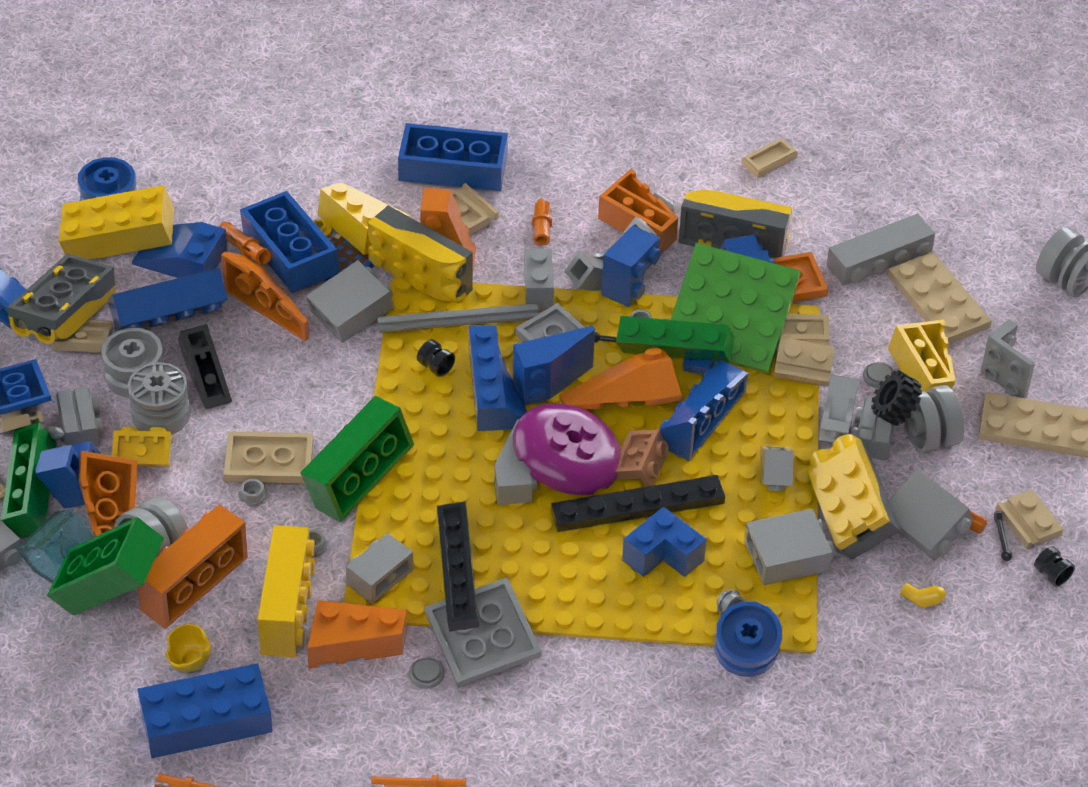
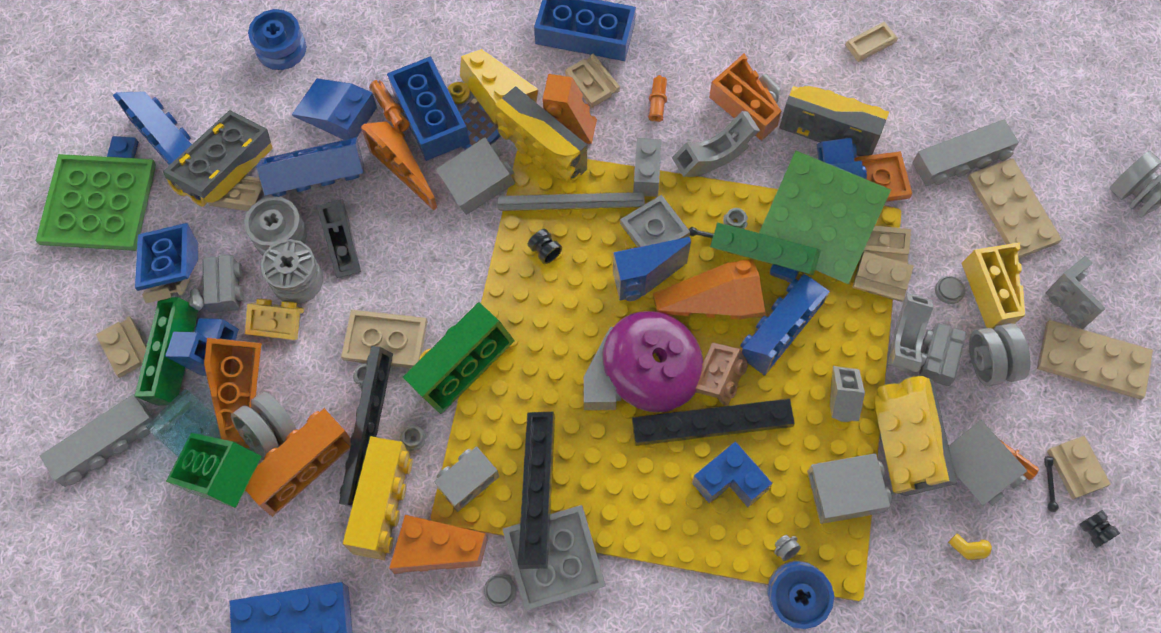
camera: 10 degrees right, 20 degrees up
(117, 223) = (278, 79): yellow brick -> none
(188, 648) = (285, 550): yellow hair -> none
(262, 522) = (367, 419): none -> black plate
(494, 392) = (595, 289): blue wedge -> none
(627, 264) = (730, 161): blue brick -> none
(896, 397) = (977, 345): black tyre -> none

